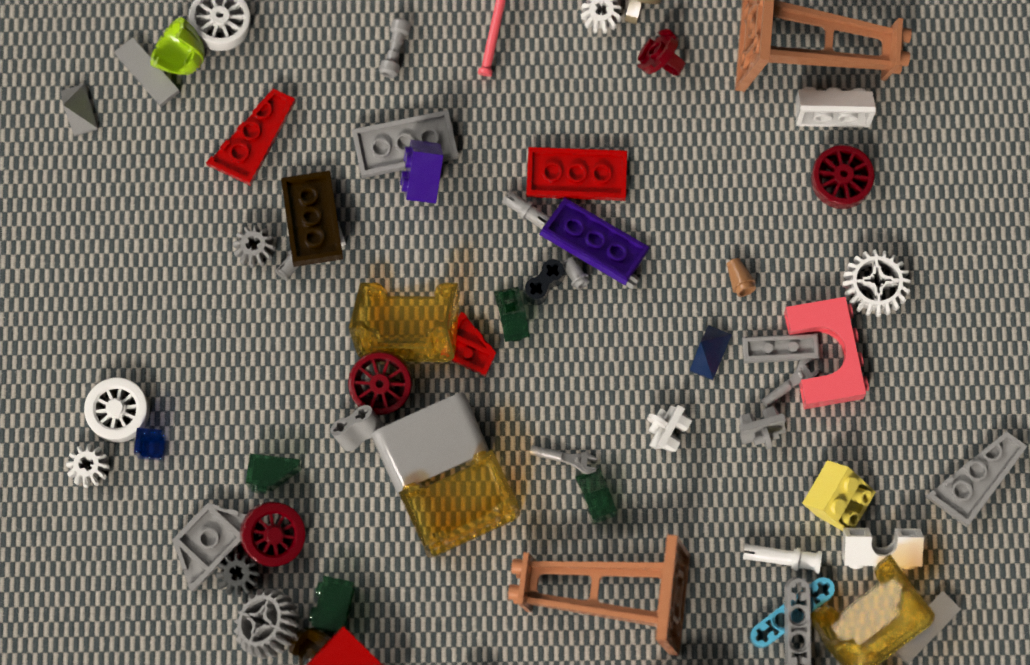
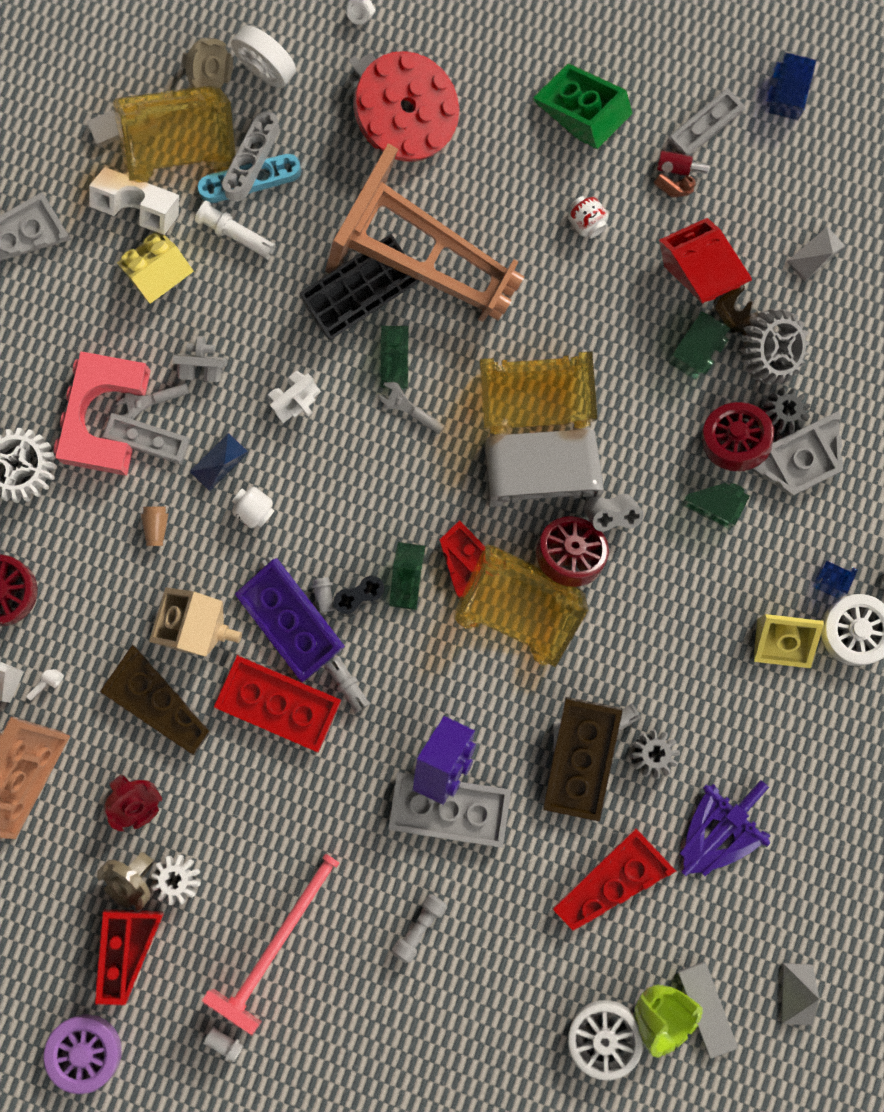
camera: 160 degrees left, 5 degrees up
(175, 379) = (786, 640): none -> light yellow slope
(186, 186) = (701, 852): none -> dark purple bar
(648, 535) = (354, 291): none -> black piece
(664, 321) = (252, 507): none -> white head
(673, 204) = (191, 622): none -> tan piece
(680, 139) = (151, 699): none -> dark brown wing
(769, 127) = (49, 677): none -> white hand

